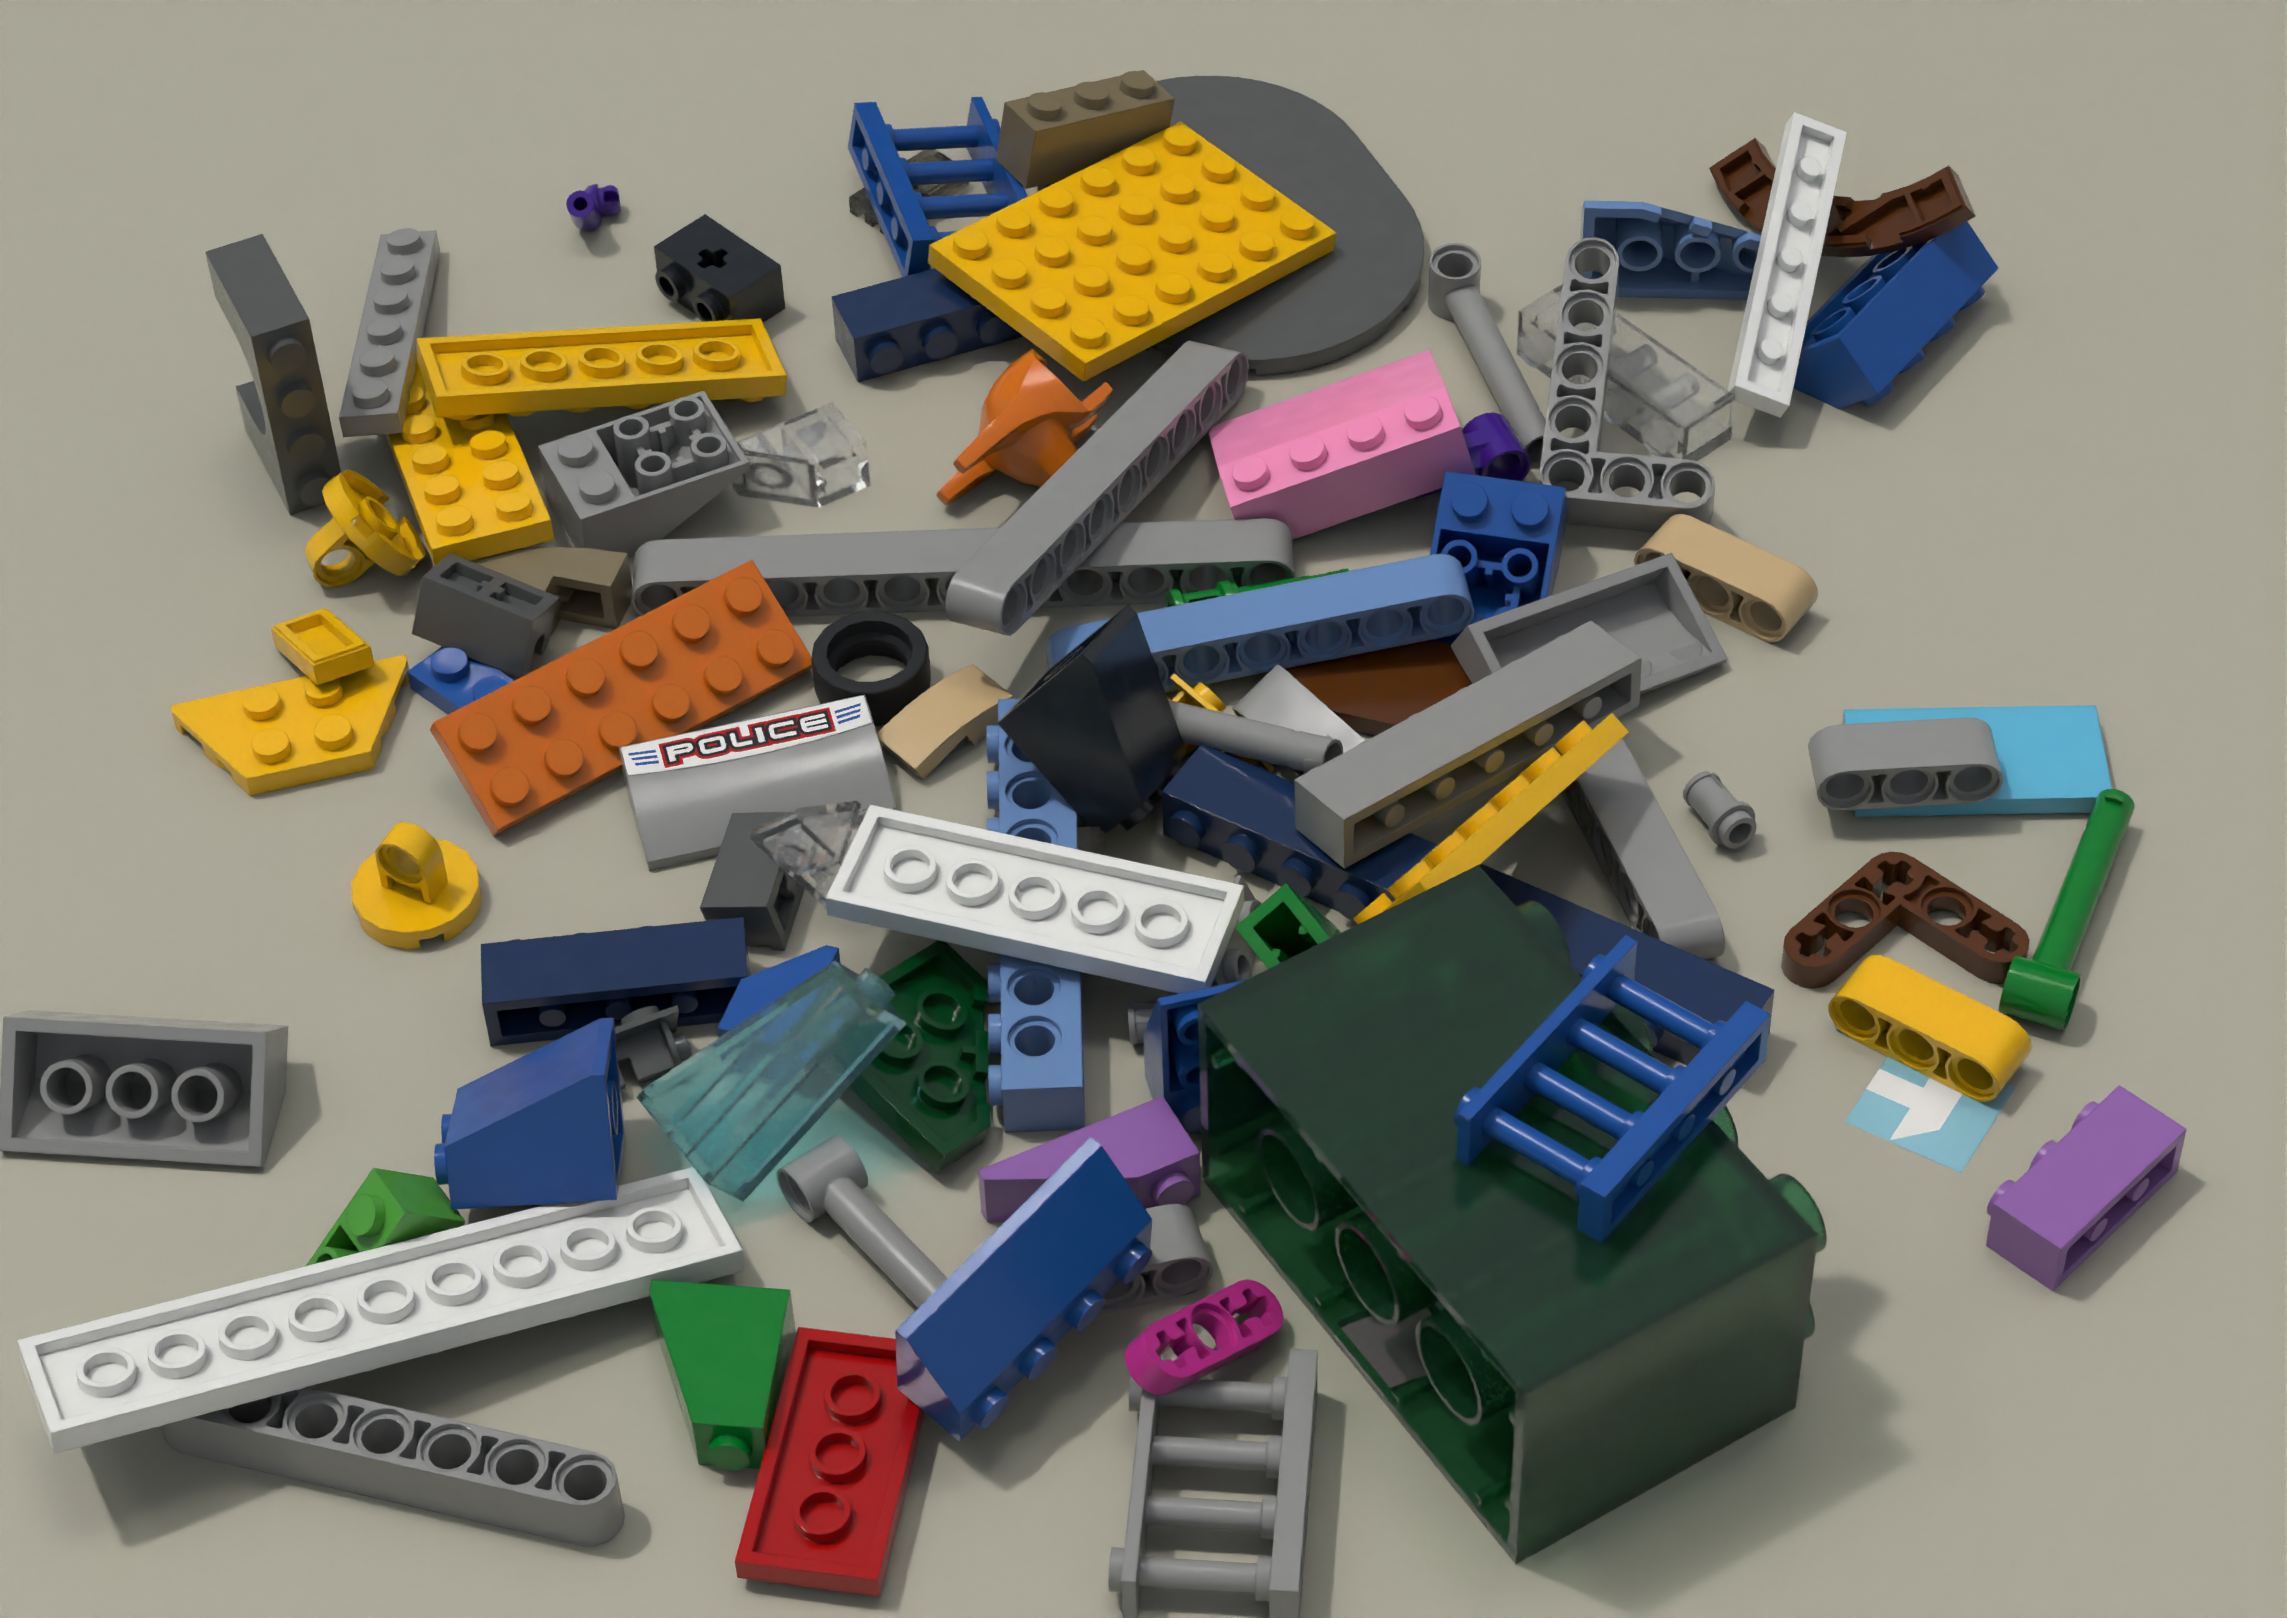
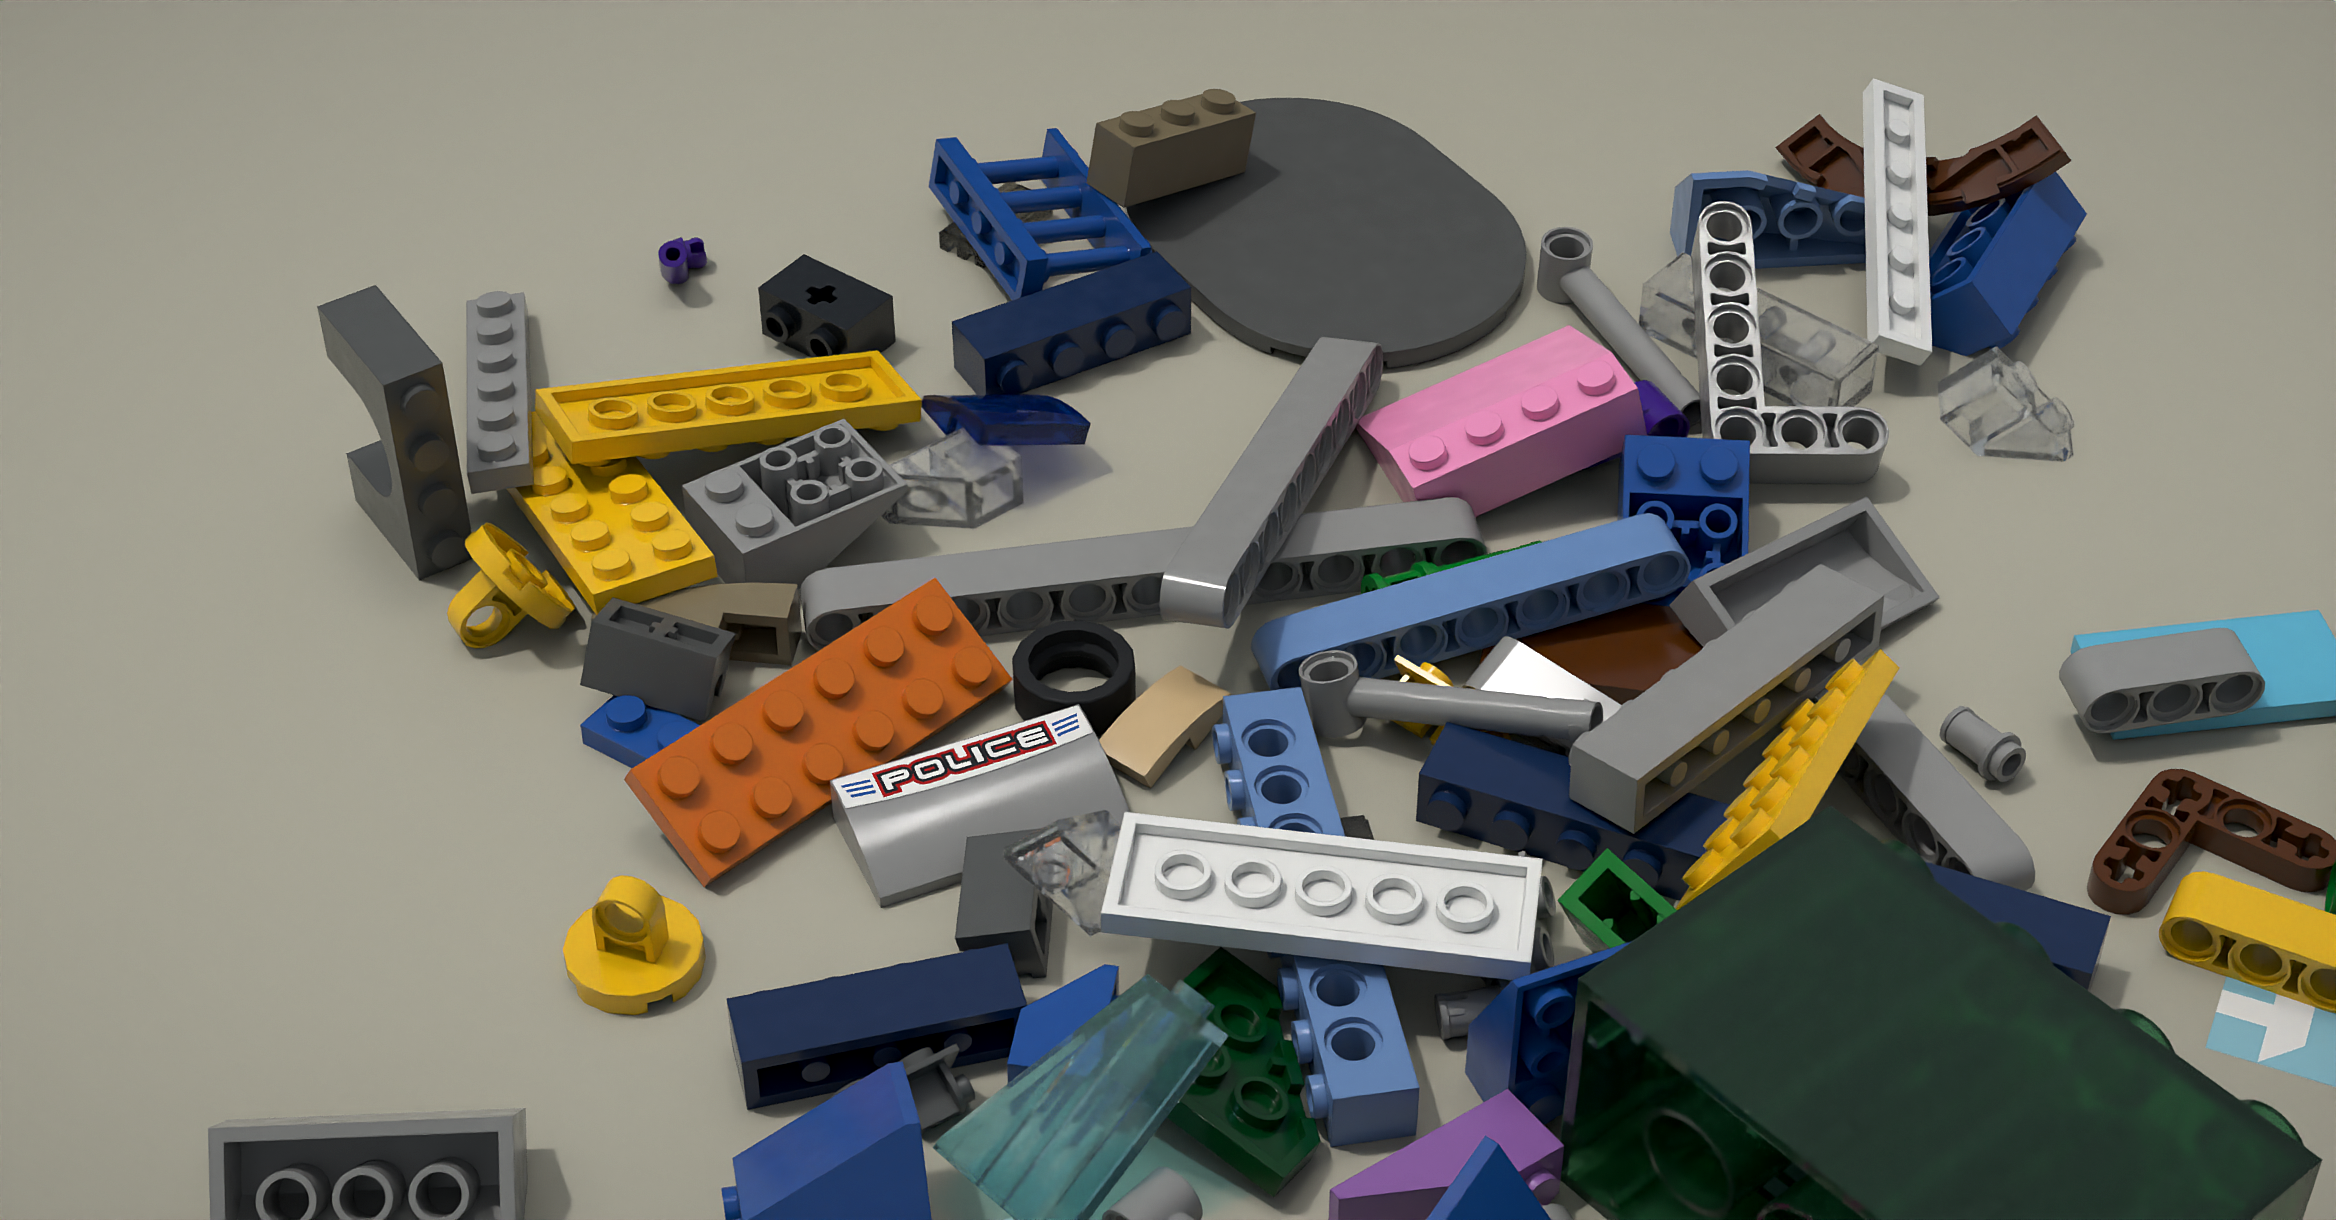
camera: 10 degrees left, 5 degrees down
(297, 729) = (469, 792): yellow wing -> none
(322, 646) = (484, 706): yellow tile -> none
(865, 401) = (1008, 419): none -> clear blue slope
(1025, 428) = (1182, 431): orange piece -> none
(1101, 726) = (1346, 709): black slope -> none
(1131, 250) = (1243, 257): yellow plate -> none
(1647, 1140) = (2114, 1073): blue fence -> none
(1734, 577) = (1930, 519): tan beam -> none
(1847, 474) = (2004, 412): none -> clear slope

